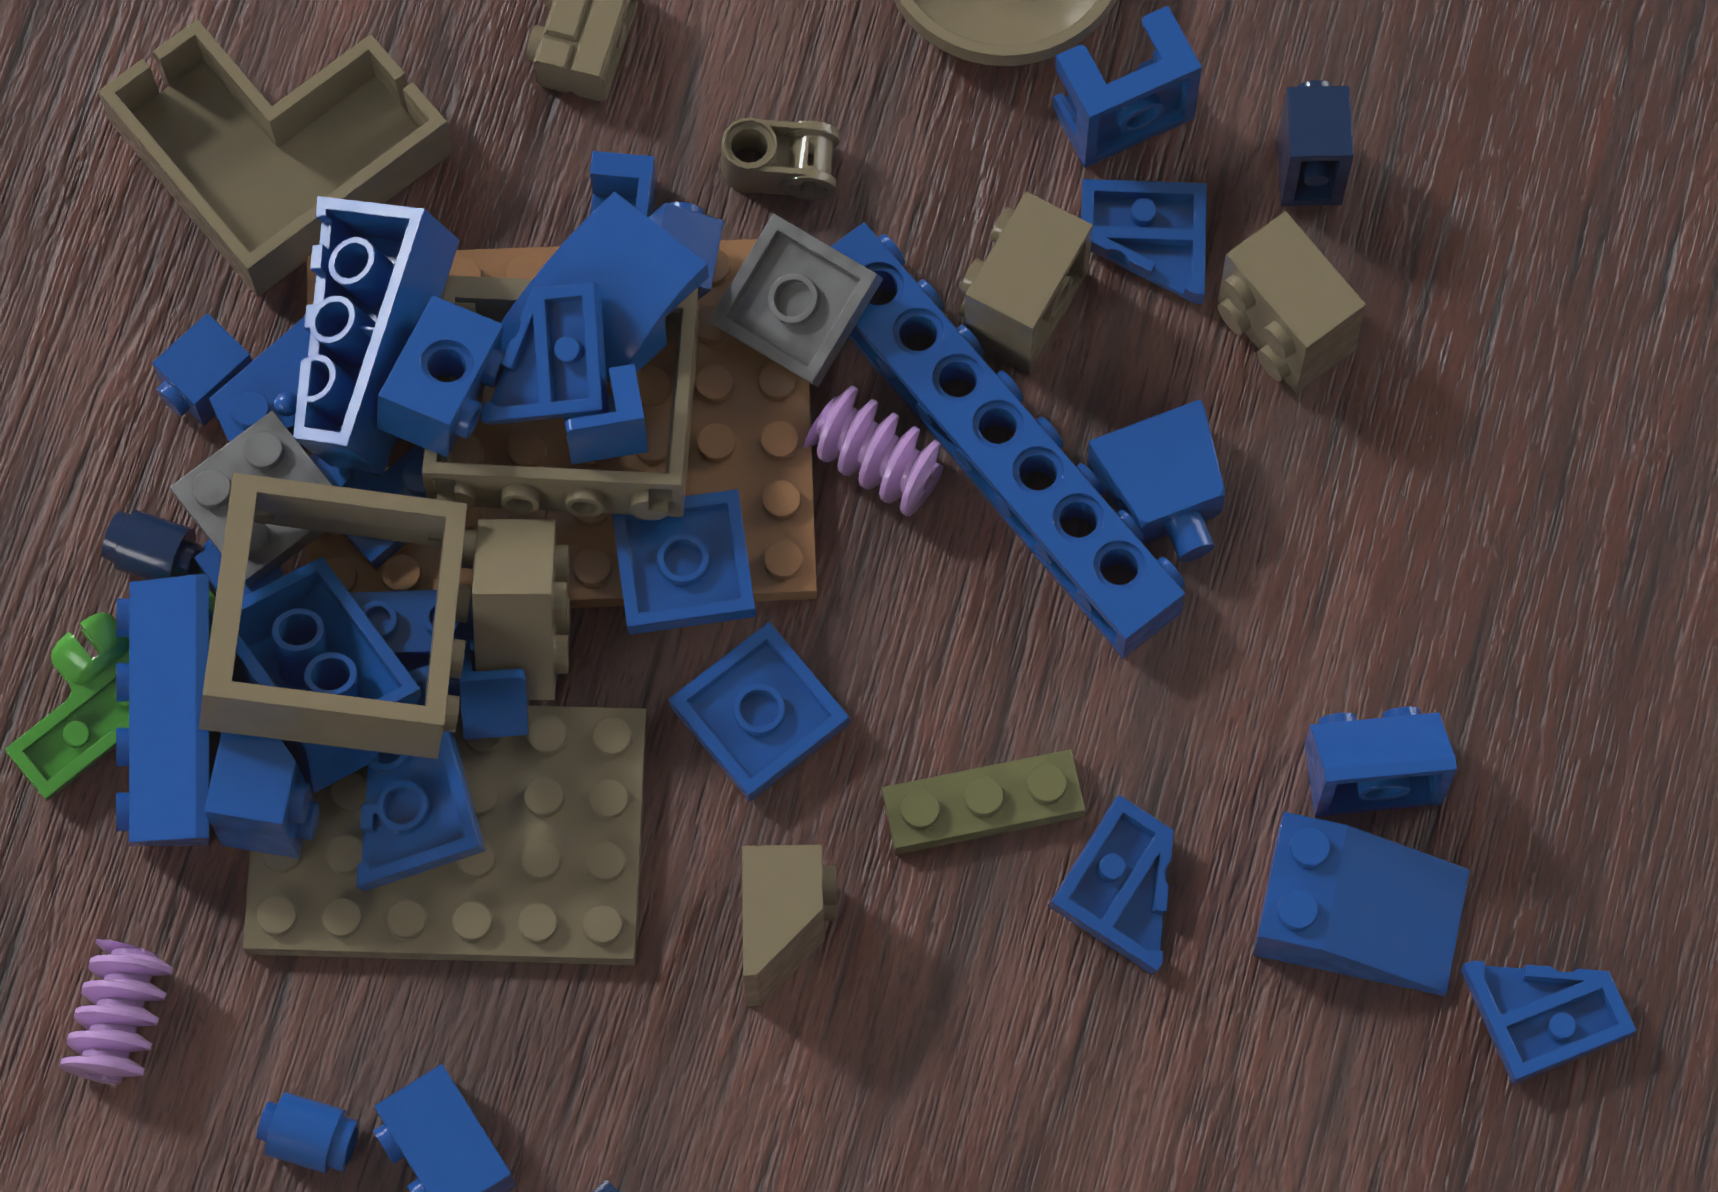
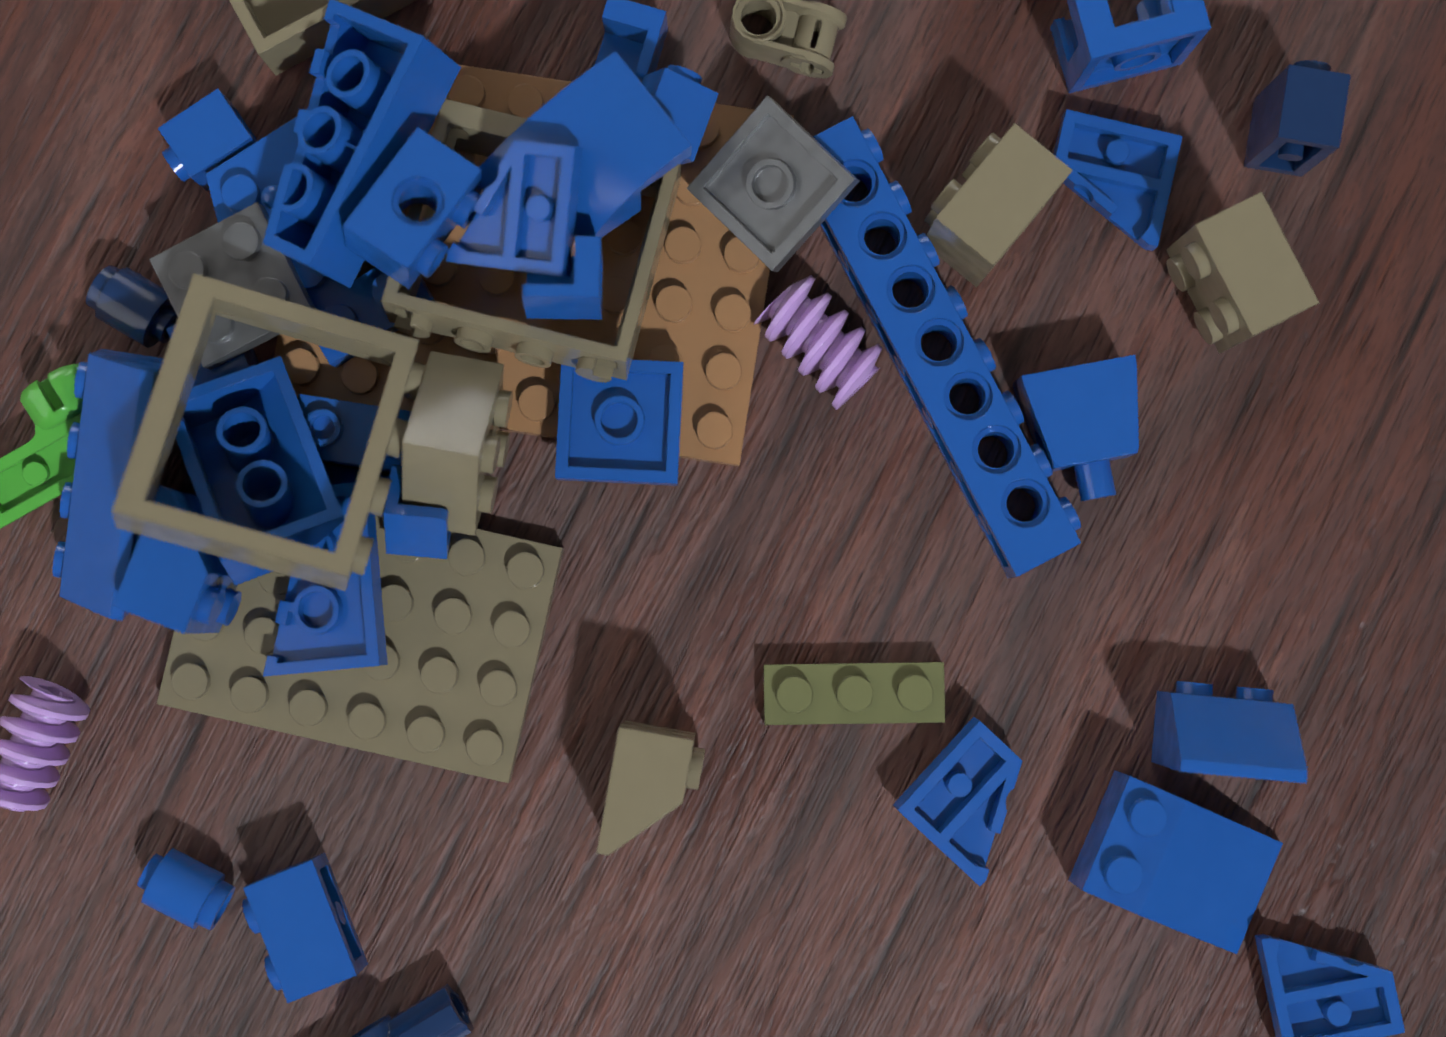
camera: 10 degrees right, 15 degrees up
(759, 711) = (665, 570): blue plate -> none

